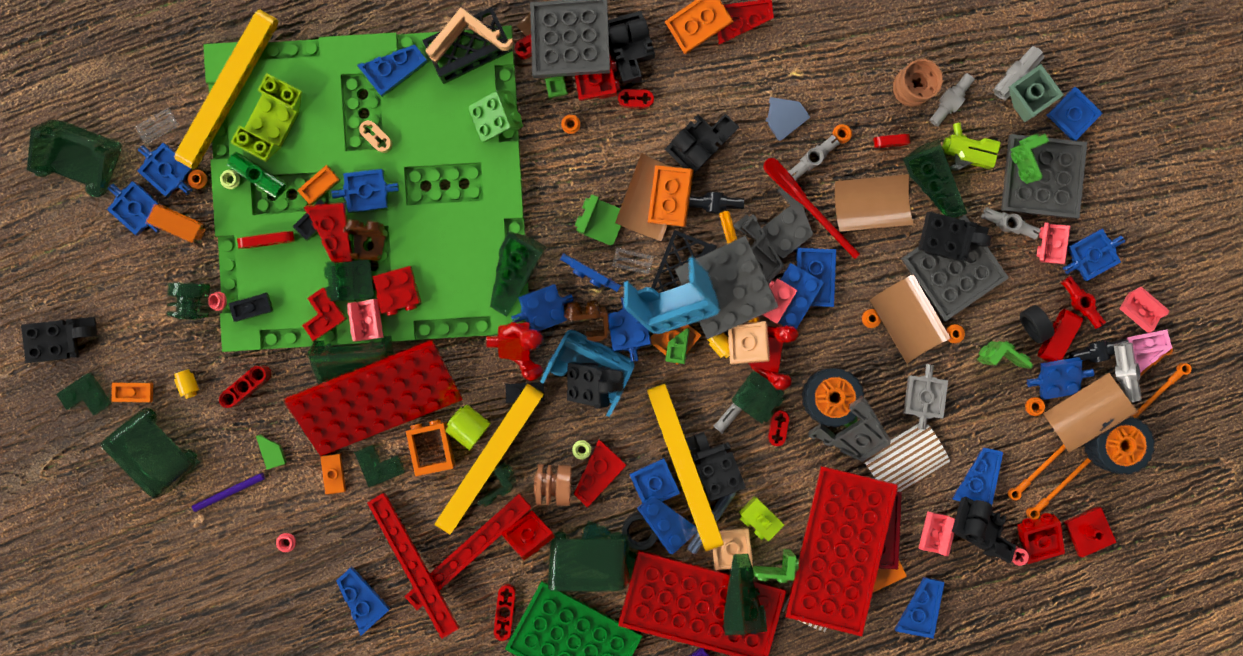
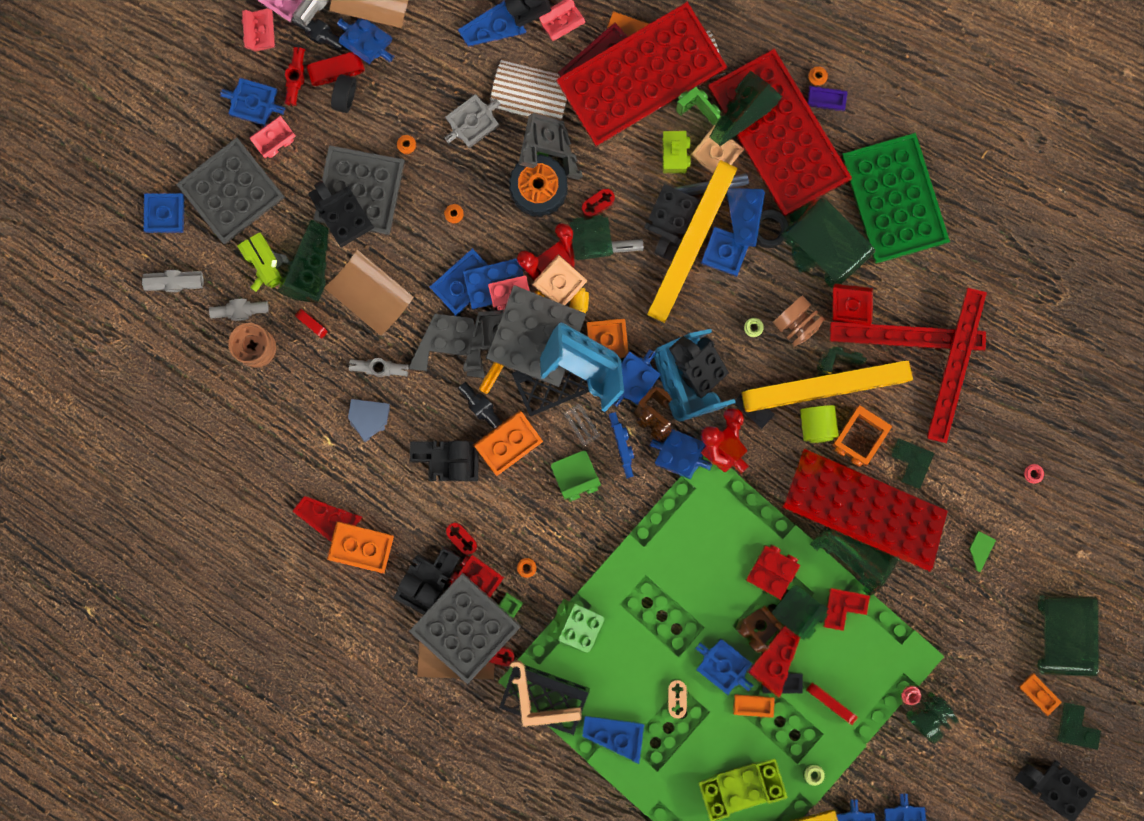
camera: 135 degrees left, 5 degrees down
(176, 223) = (885, 781): orange window -> none
(186, 384) = (994, 660): yellow brick -> none
(201, 183) = (838, 796): orange plate -> none
(228, 492) = (1041, 552): dark purple bar -> none
(236, 388) = (961, 619): red beam -> none
(248, 168) = (794, 770): green piece -> none
(250, 307) = (891, 665): black plate -> none
(333, 473) = (950, 489): orange plate -> none
(362, 600) = (1019, 375): blue wing -> none
(365, 320) = (817, 572): coral bracket -> none
(508, 626) = (931, 255): red beam -> none
(515, 266) = (668, 503): clear green wedge -> none
(599, 473) = (758, 297): red wing -> none
(636, 203) = (537, 462): medium nougat sticker -> none
(677, 348) = (612, 330): bright green tile -> none
(789, 185) = (415, 372): red piece -> none
(848, 133) = (334, 364): orange plate -> none
(909, 318) = (427, 187): medium nougat sticker -> none
(995, 351) = (391, 104): bright green bracket -> none
(1001, 221) = (291, 190): light grey pin -> none
(1025, 160) = (233, 221): bright green bracket -> none
(1034, 93) = (178, 255): sand green slope -> none
(1040, 406) = (399, 33): orange plate -> none

